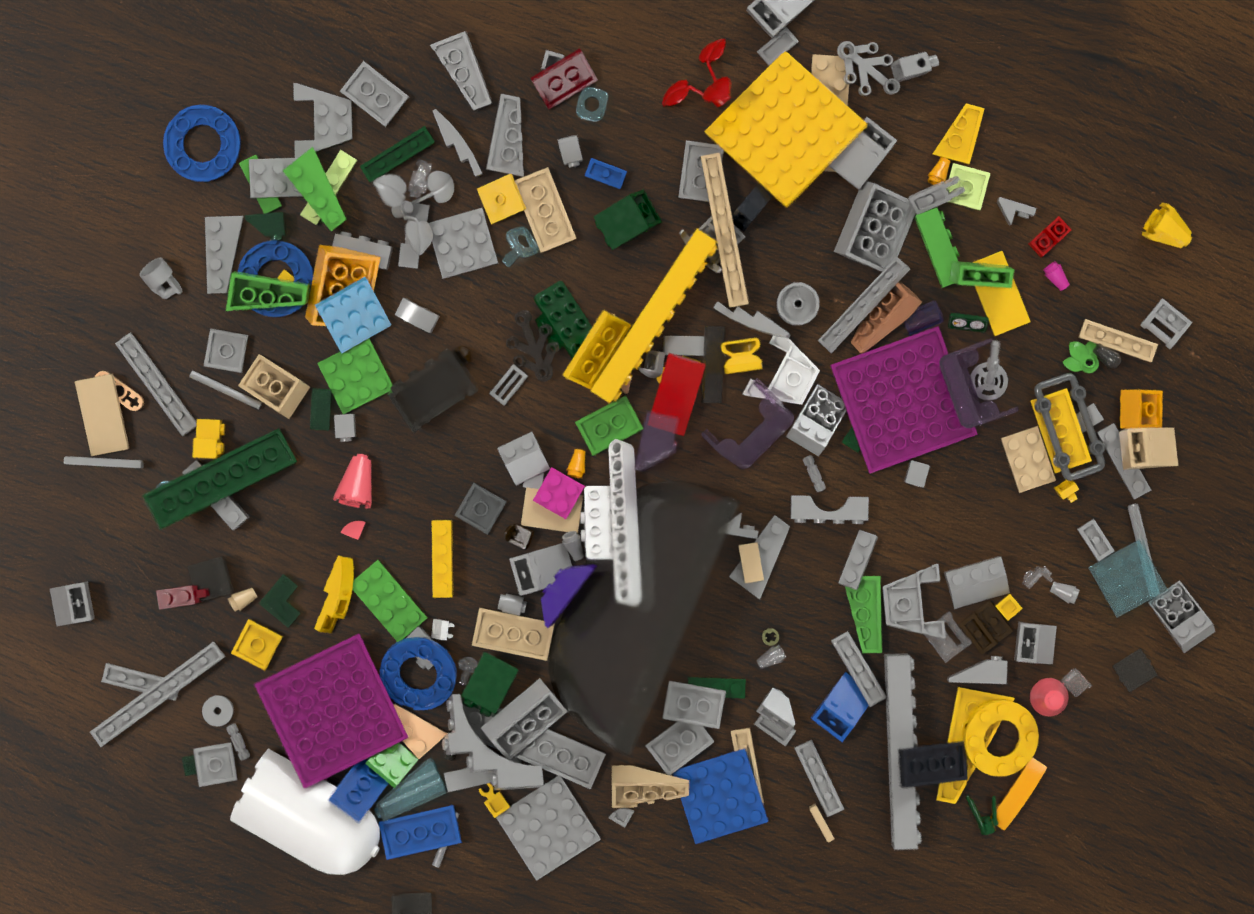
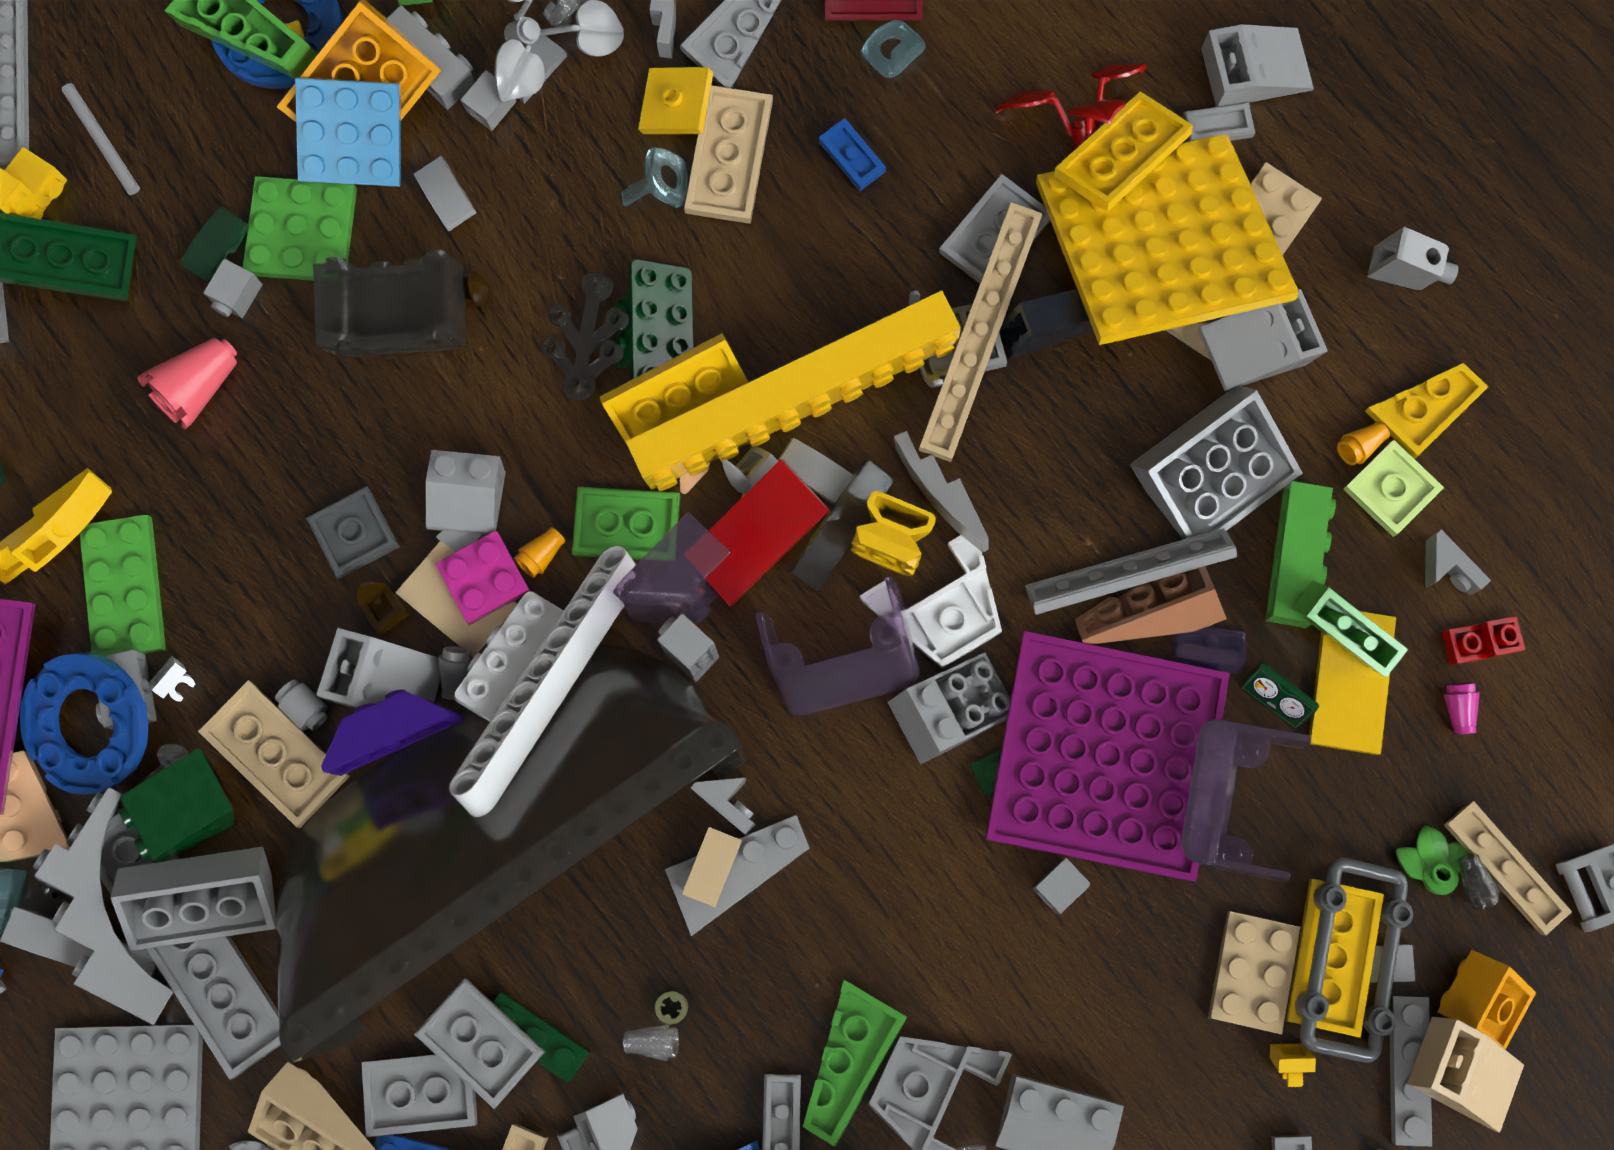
camera: 30 degrees right, 10 degrees down
(226, 350) = (138, 83): light grey plate -> none
(274, 386) = (170, 173): tan slope -> none
(354, 529) = (145, 449): coral tile -> none
(442, 558) = (242, 570): yellow brick -> none
(462, 243) = (579, 133): light grey plate -> none
(496, 802) = (71, 1007): yellow plate -> none
(518, 372) = (518, 386): light grey tile -> none
(570, 151) = (820, 86): light grey slope -> none
(627, 219) = (843, 234): dark green slope -> none
(678, 469) = (687, 646): none -> light grey brick
(746, 87) = (1123, 152): none -> yellow plate
(793, 314) = (1045, 499): light grey wheel -> none
(814, 473) = (897, 787): light grey axle -> none
(854, 509) = (927, 883): light grey arch -> none
(858, 560) = (885, 968): light grey plate -> none
(865, 66) = (1338, 222): light grey plant -> none
(935, 195) = (1338, 468): light grey hinge -> none
(994, 371) = (1265, 802): light grey dish -> none

